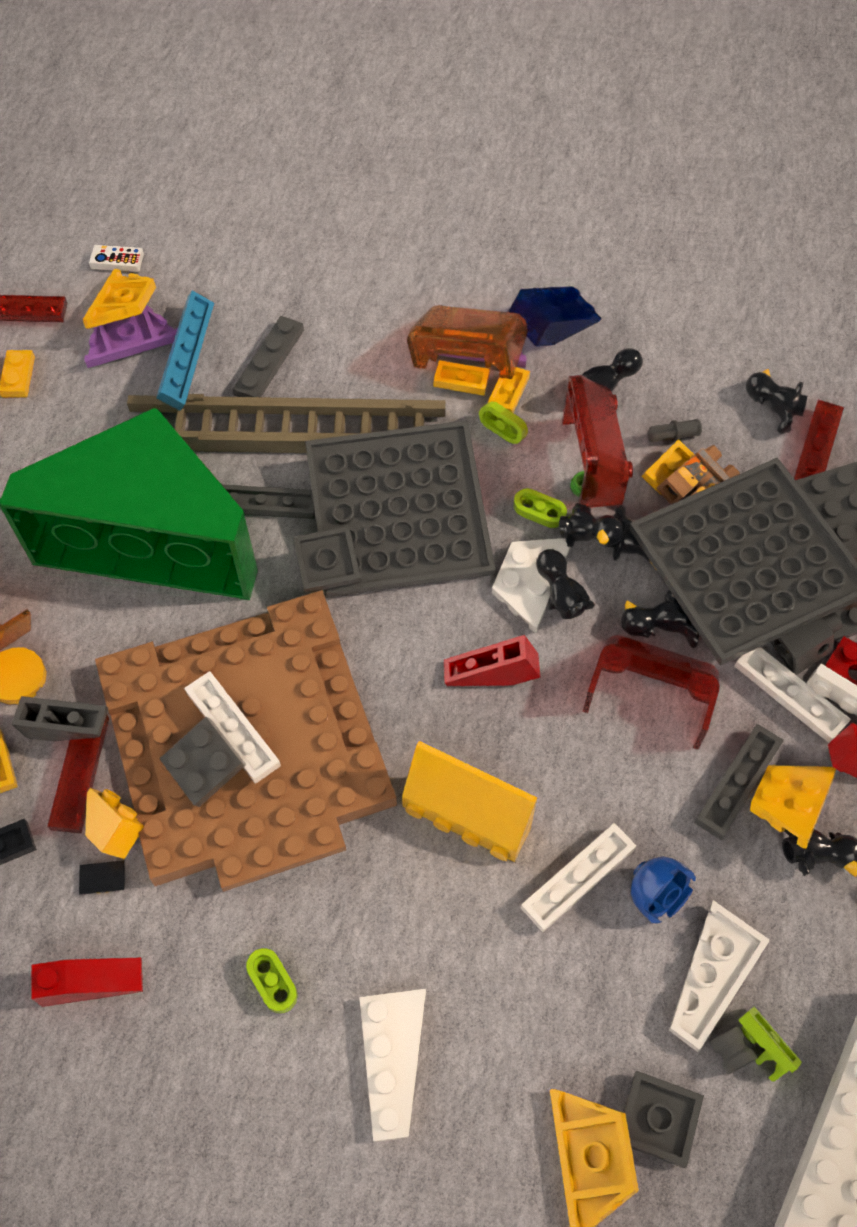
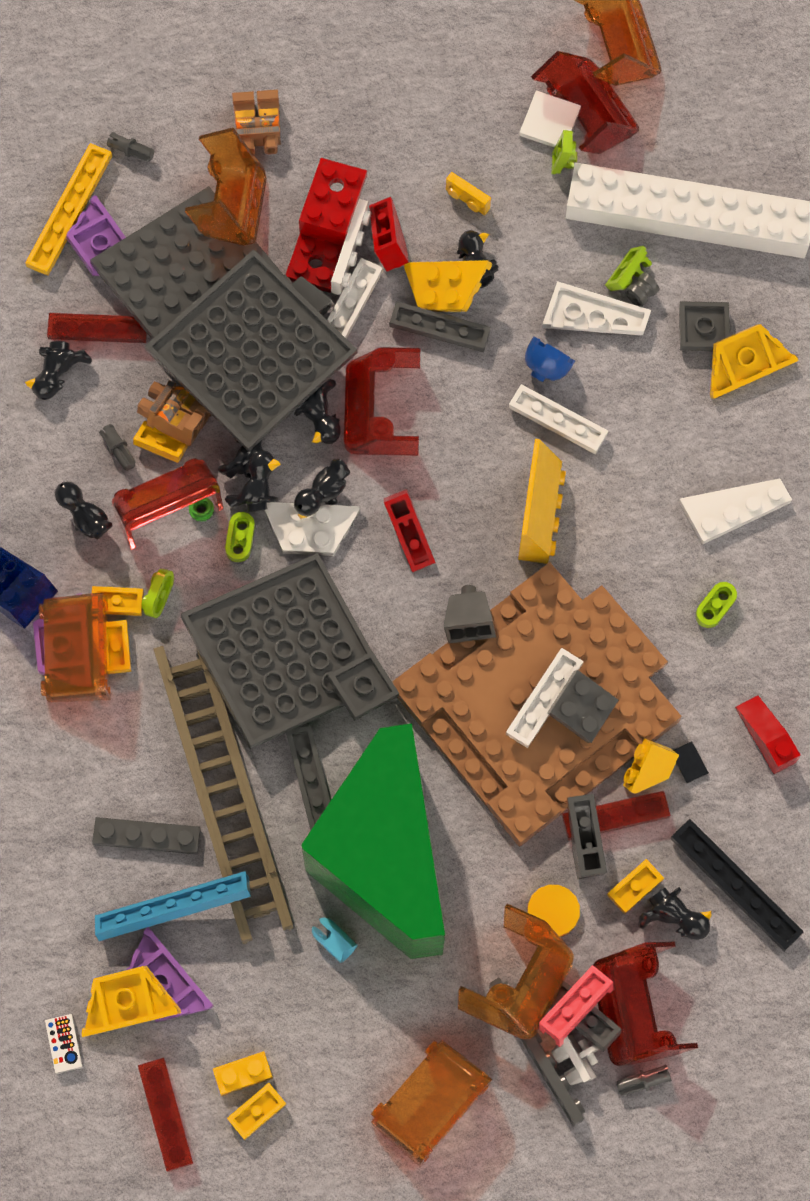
camera: 110 degrees left, 10 degrees up
(365, 689) = (468, 616): none -> dark grey torso

